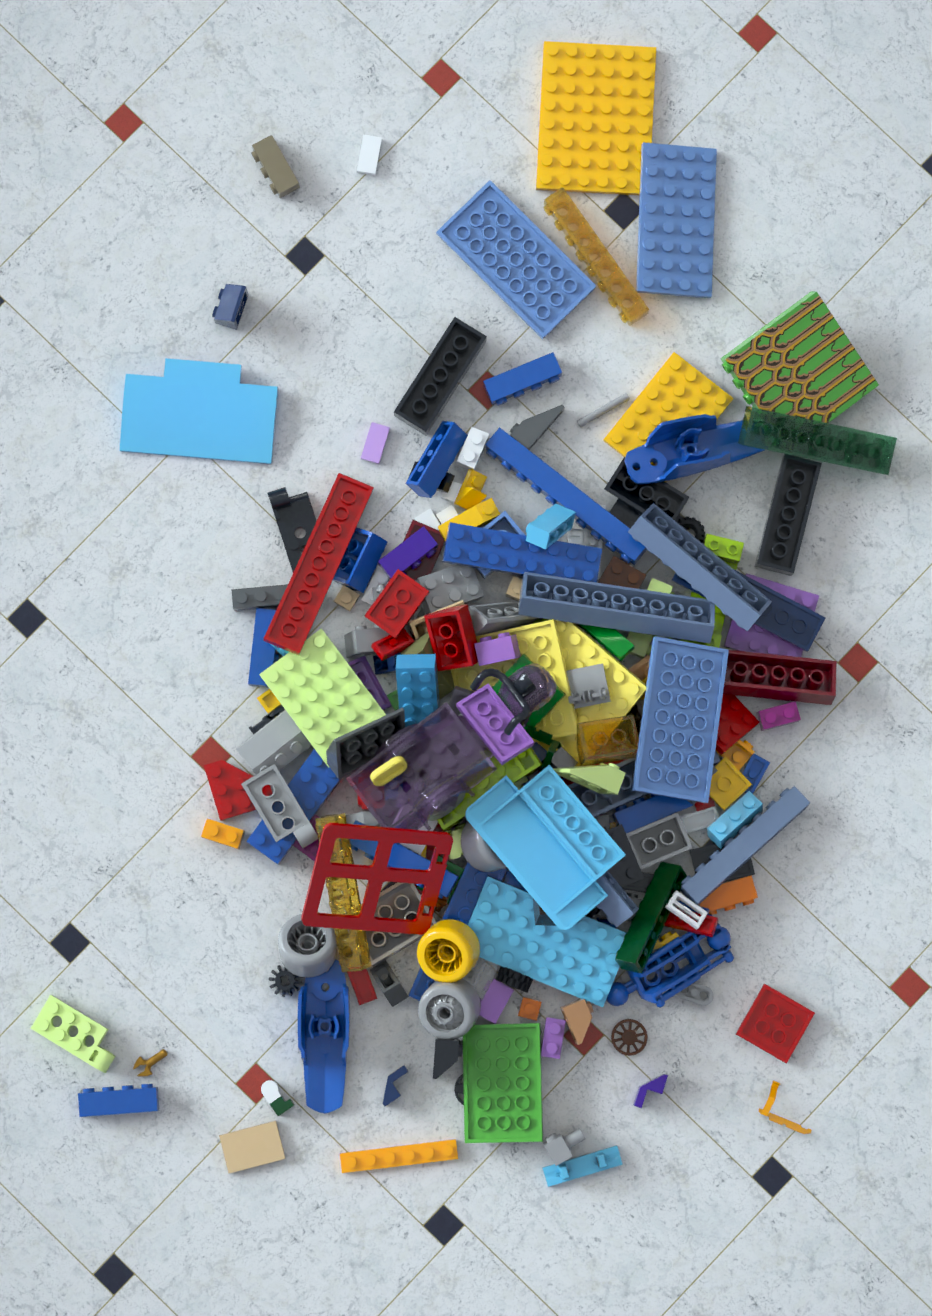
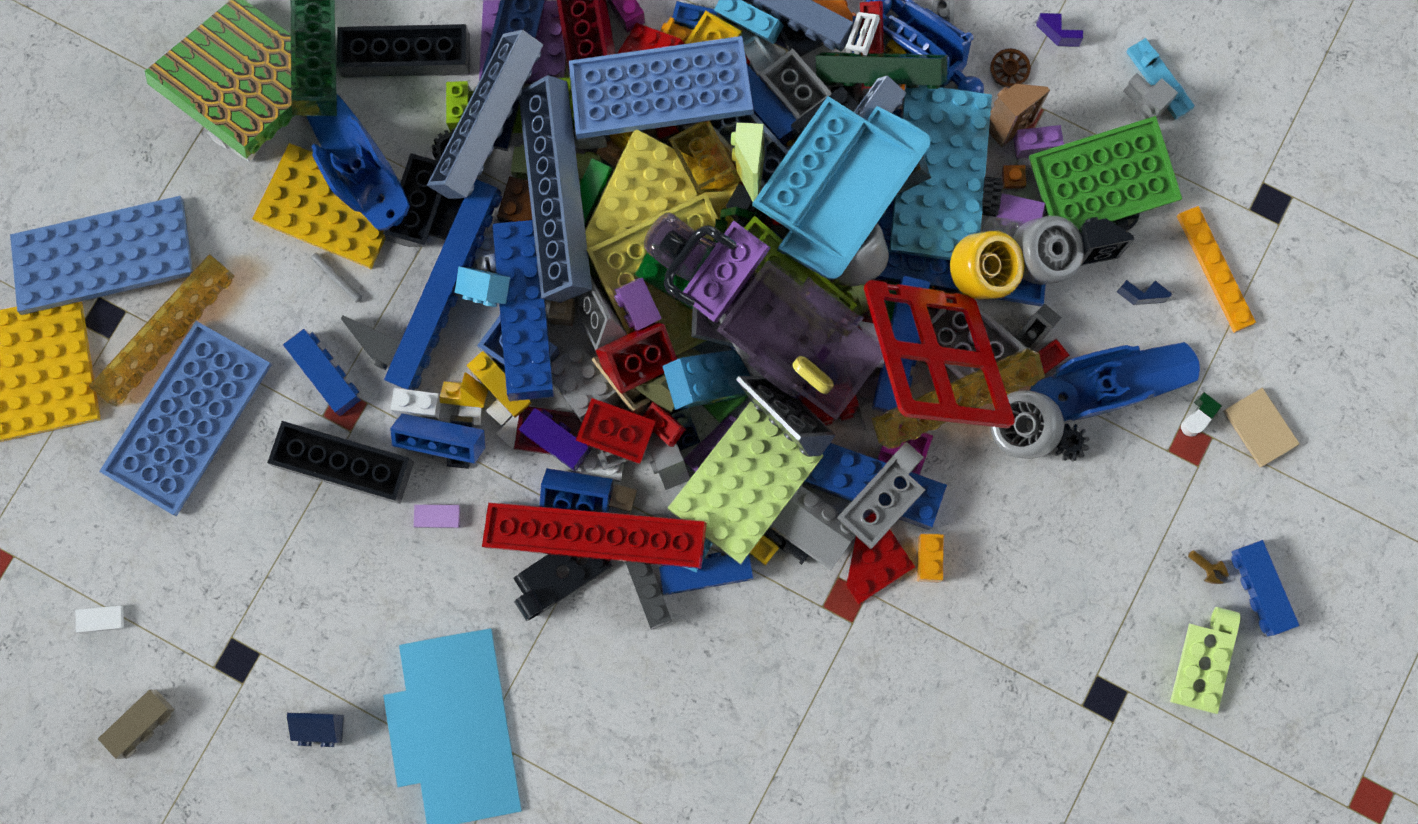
camera: 100 degrees left, 5 degrees down
(588, 686) = (650, 194): light grey hinge -> none

